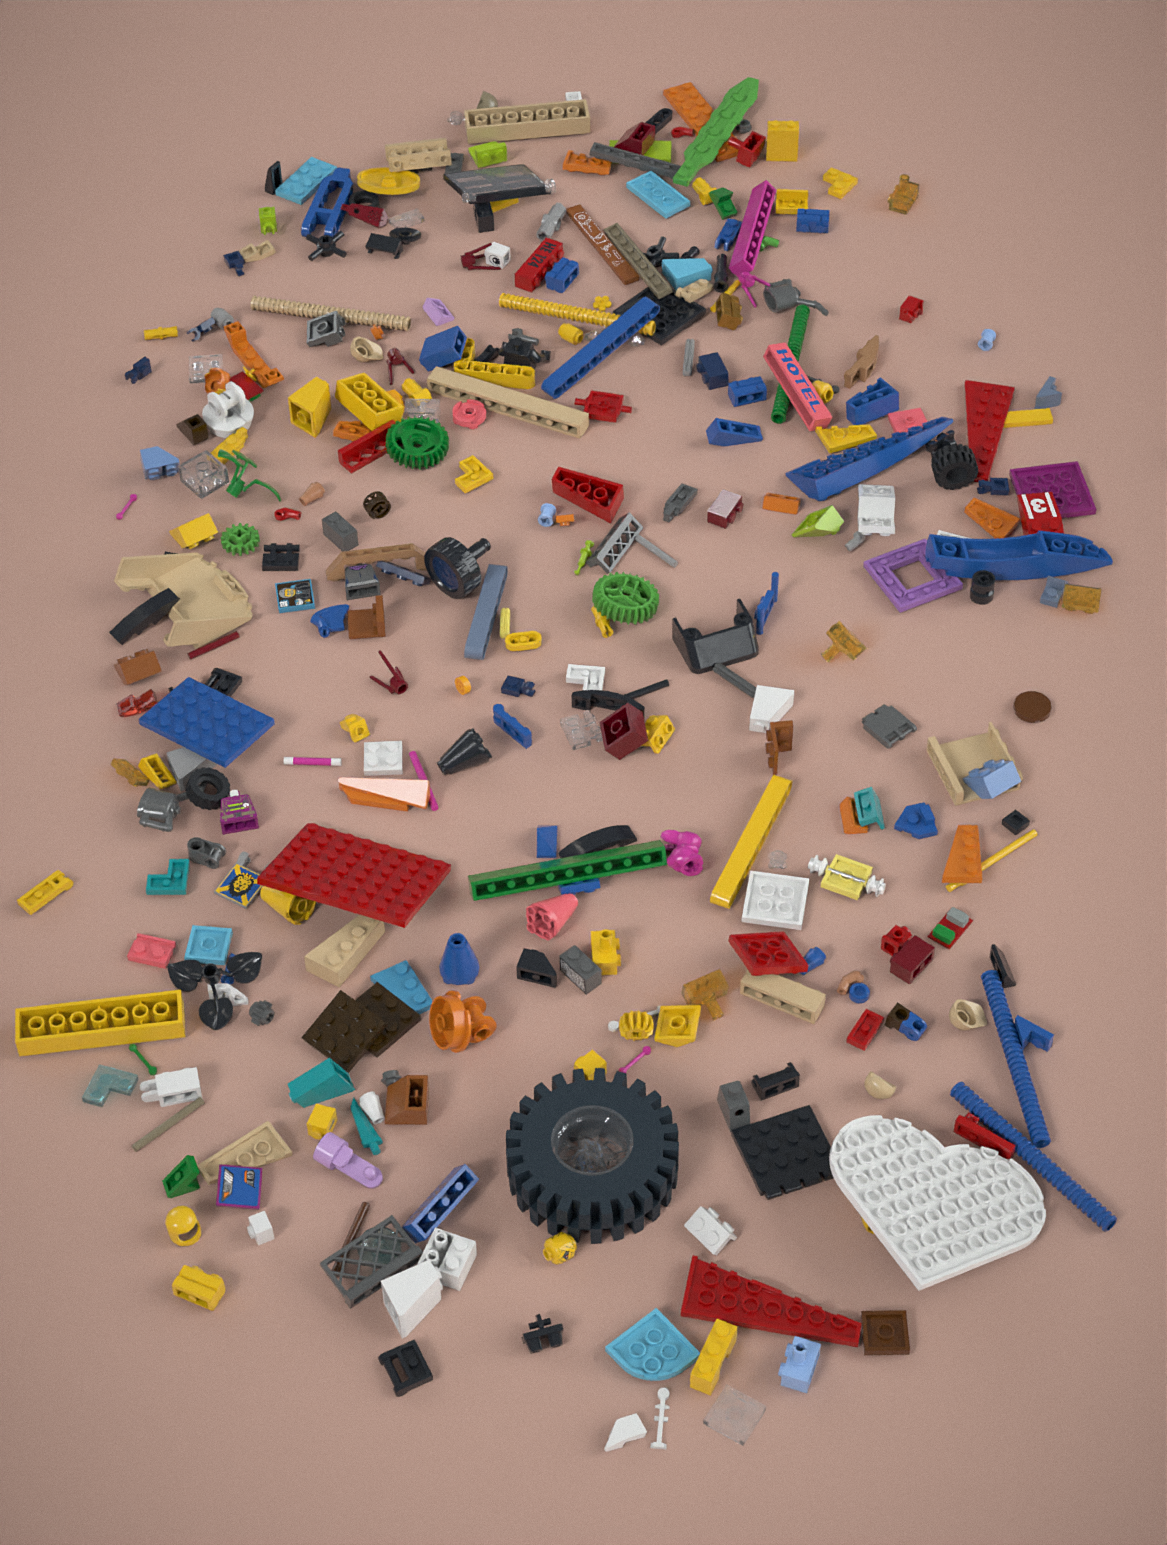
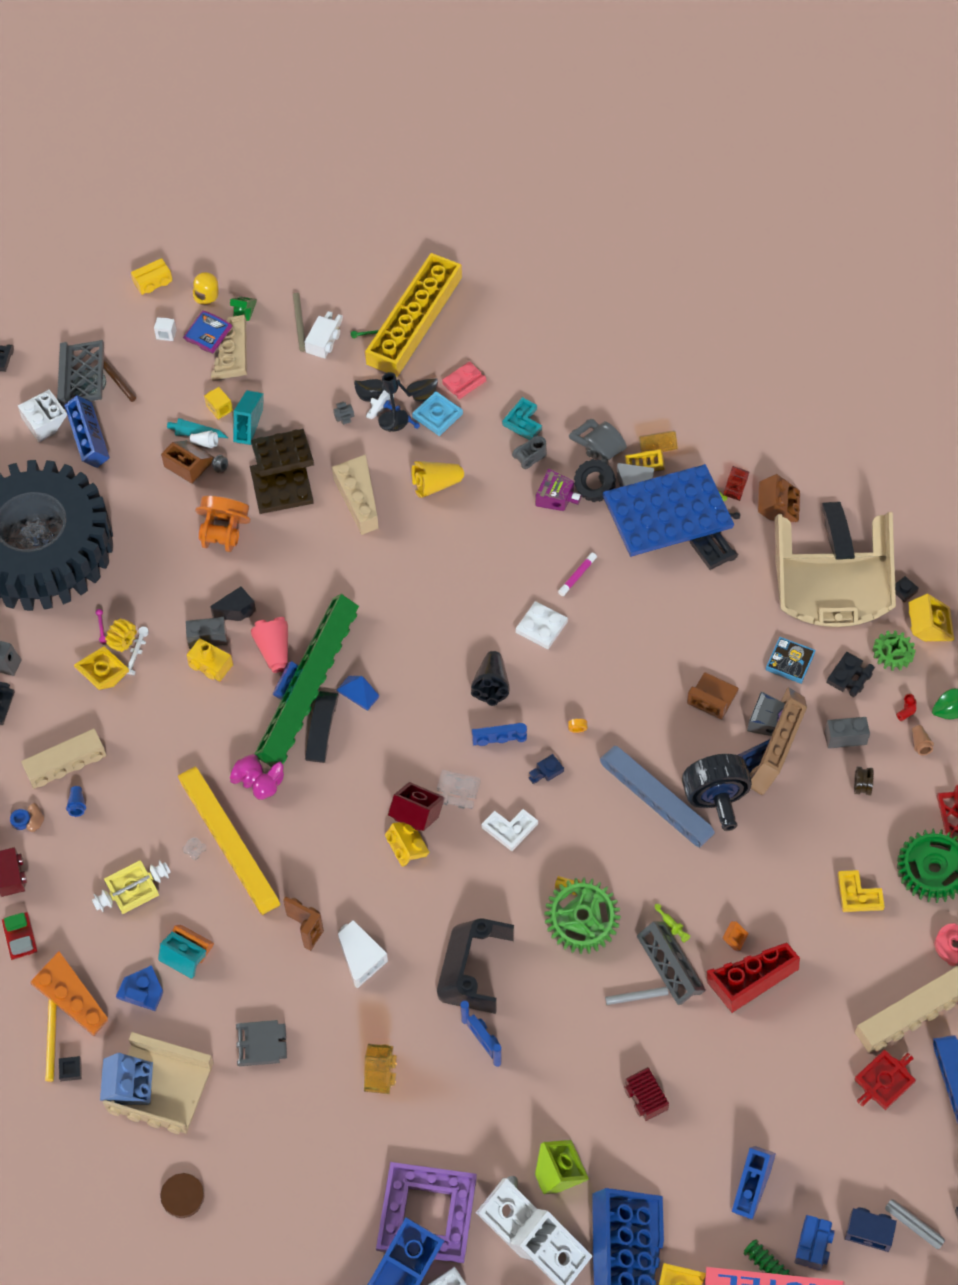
camera: 125 degrees right, 10 degrees up
(44, 892) = (573, 339): yellow plate -> none
(107, 1080) = (363, 301): clear light blue plate -> none
(215, 644) = (771, 570): dark red bar -> none
(240, 883) = (482, 465): flag -> none
(330, 619) = (739, 671): blue arm -> none
(335, 1153) = (179, 395): lavender piece -> none
(355, 726) = (591, 619): yellow bracket -> none
(355, 874) = (417, 526): red plate -> none
(386, 793) = (497, 602): wedge -> none
(397, 682) = (617, 678): dark red plant -> none
(405, 985) = (295, 517): dark azure wing -> none
(412, 1295) = (32, 371): white slope -> none
(421, 775) = (493, 640): dark pink bar -> none
(458, 961) = (281, 555): blue cone -> none
(504, 622) = (633, 805): light yellow axle -> none
(523, 640) = (597, 806): yellow plate -> none
(546, 517) = (752, 924): light blue bush -> none
(589, 1063) = (115, 587): yellow brick -> none
(603, 699) = (446, 840): black slope -> none
(648, 689) = (464, 867): black bar -> none
(678, 501) = (689, 1059): dark grey hinge -> none
(706, 991) = (110, 702): clear yellow brick -> none
(735, 679) = (417, 952): dark grey axle -> none
(768, 953) = (101, 764): red plate -> none
(775, 900) = (155, 816): white plate -> none
(781, 503) = (623, 1163): orange slope -> none
(894, 939) = (38, 877): red brick -> none
(982, 587) = (355, 1262): black wheel -> none

